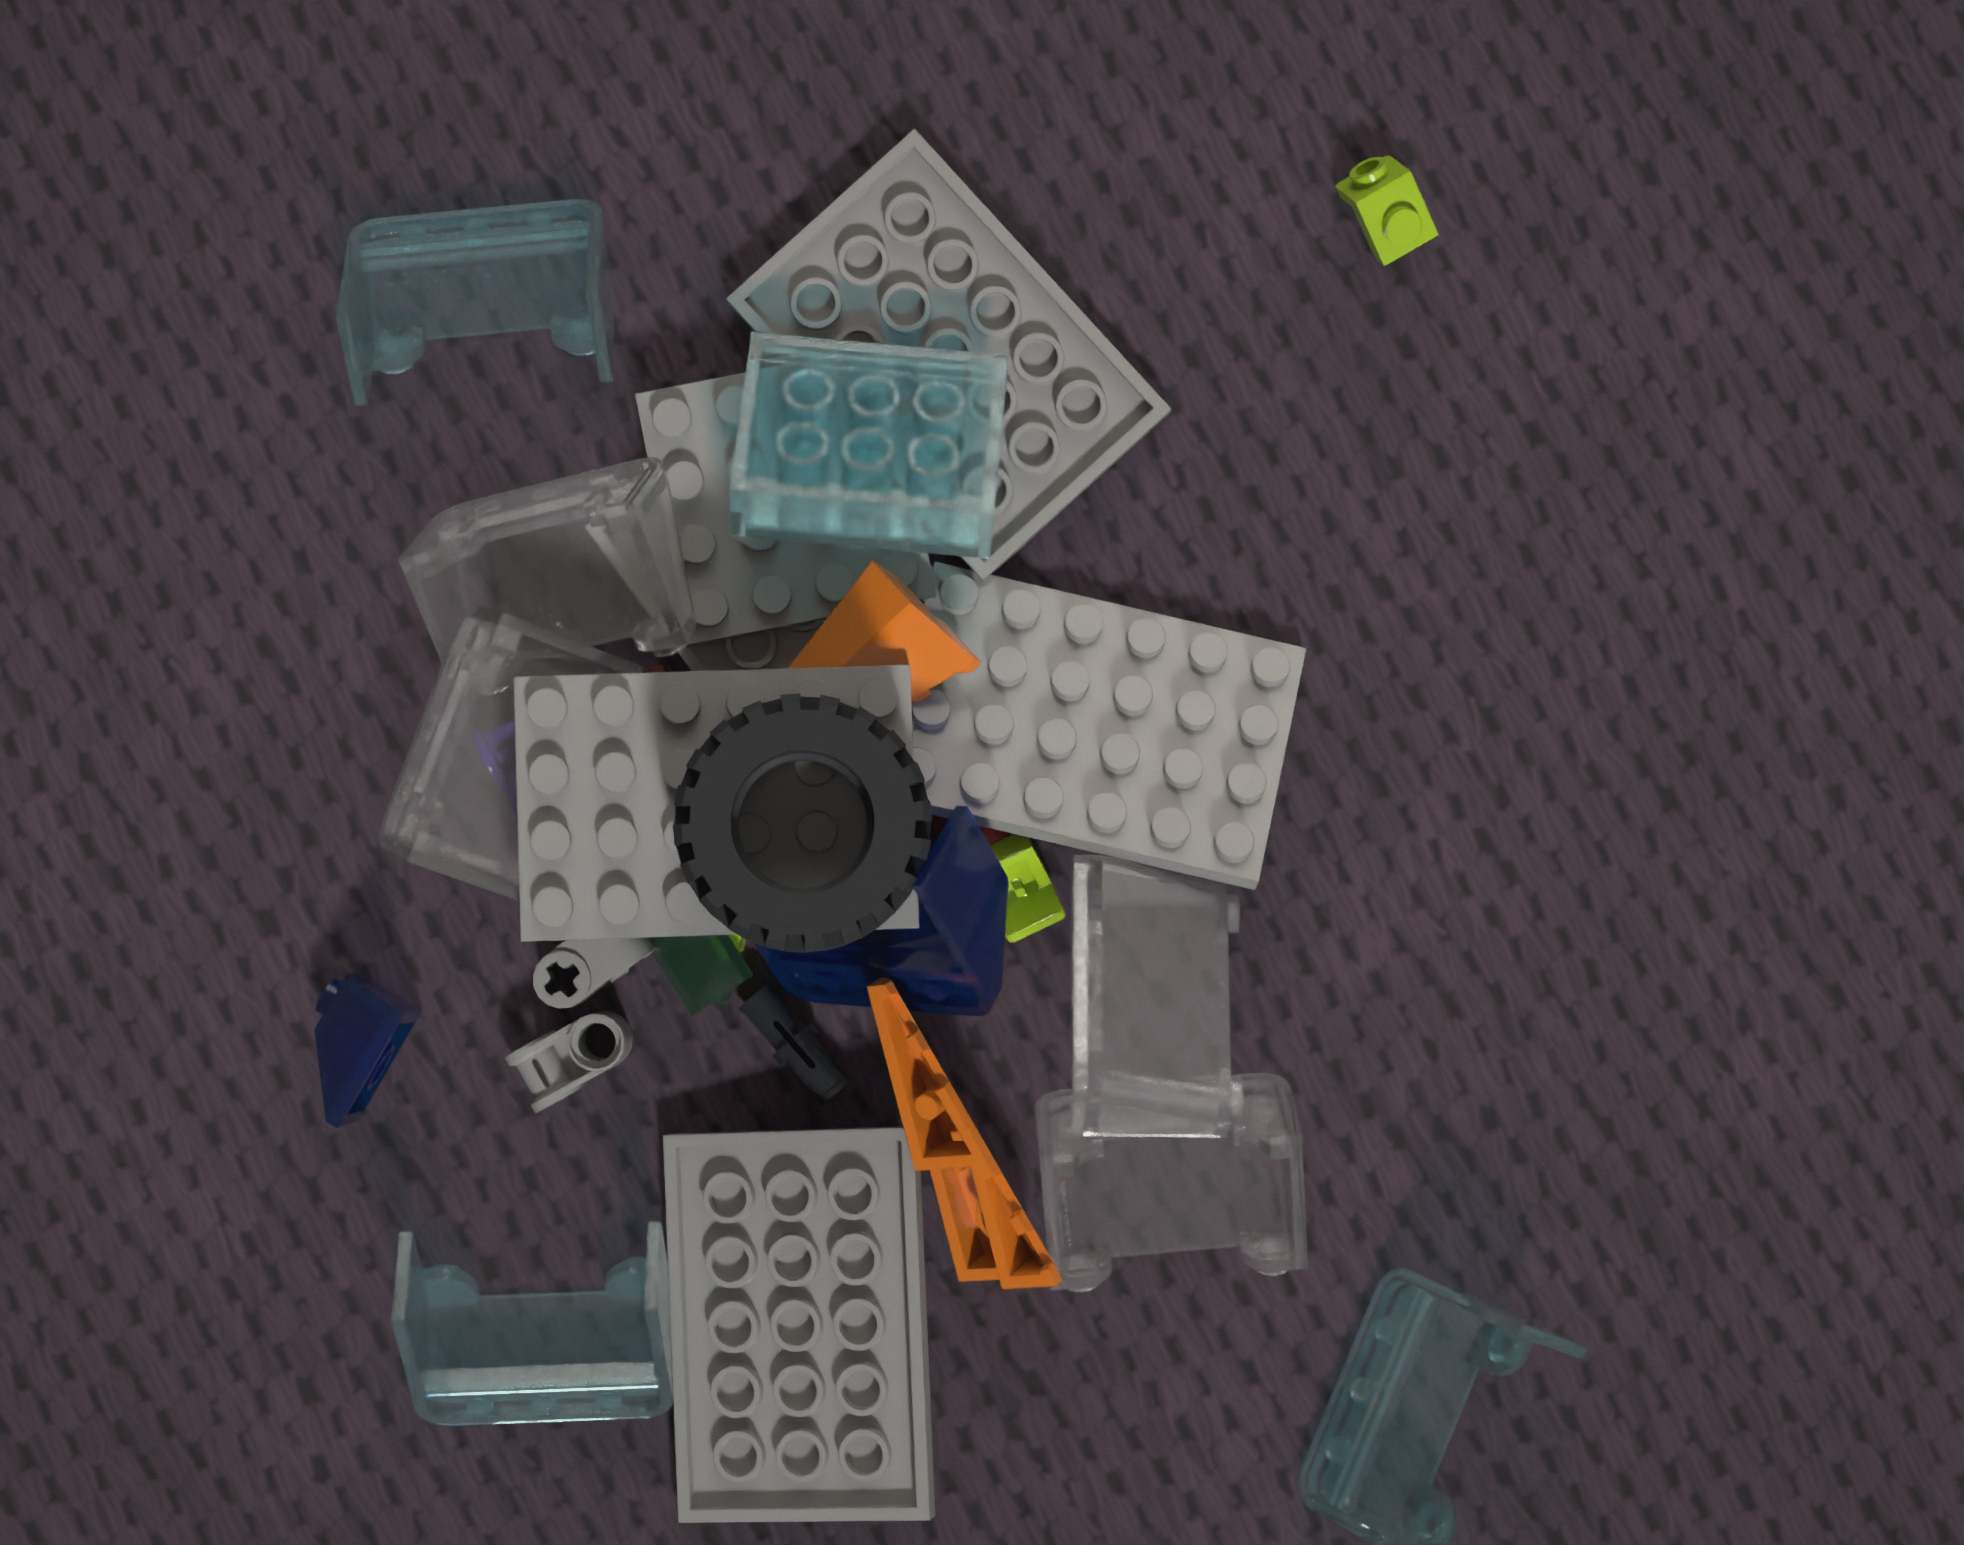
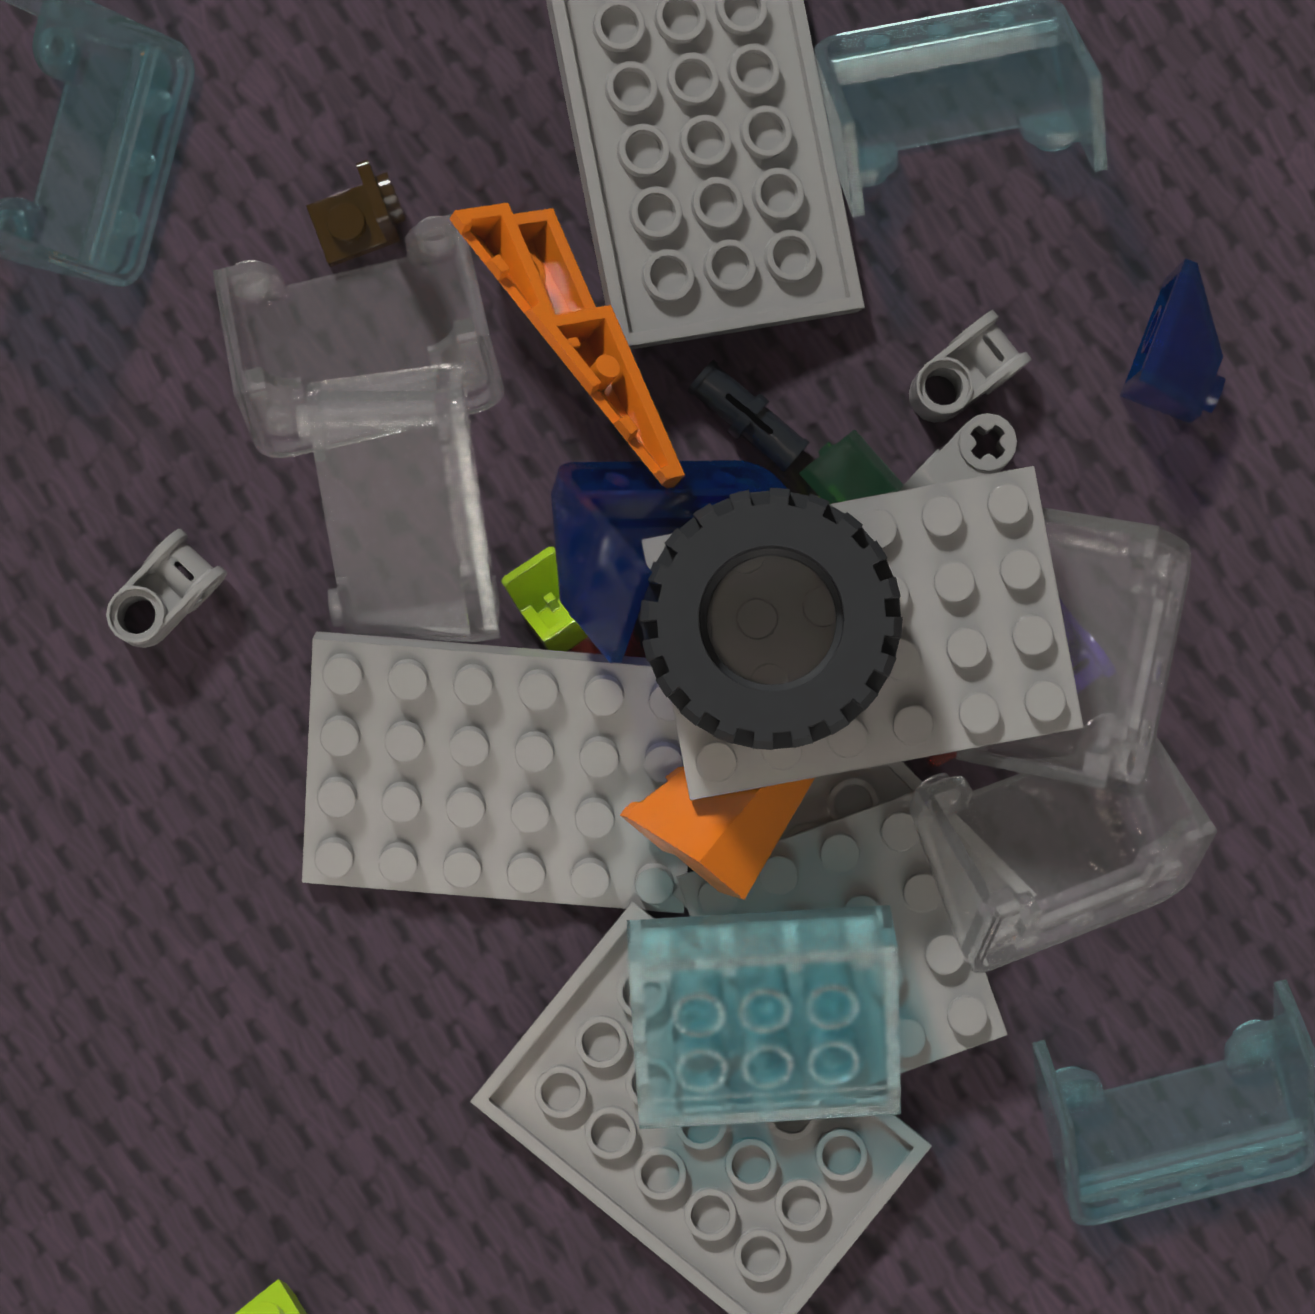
camera: 170 degrees right, 0 degrees up
(1156, 1301) = (358, 218): none -> dark brown bracket
(1399, 958) = (165, 588): none -> light grey piece

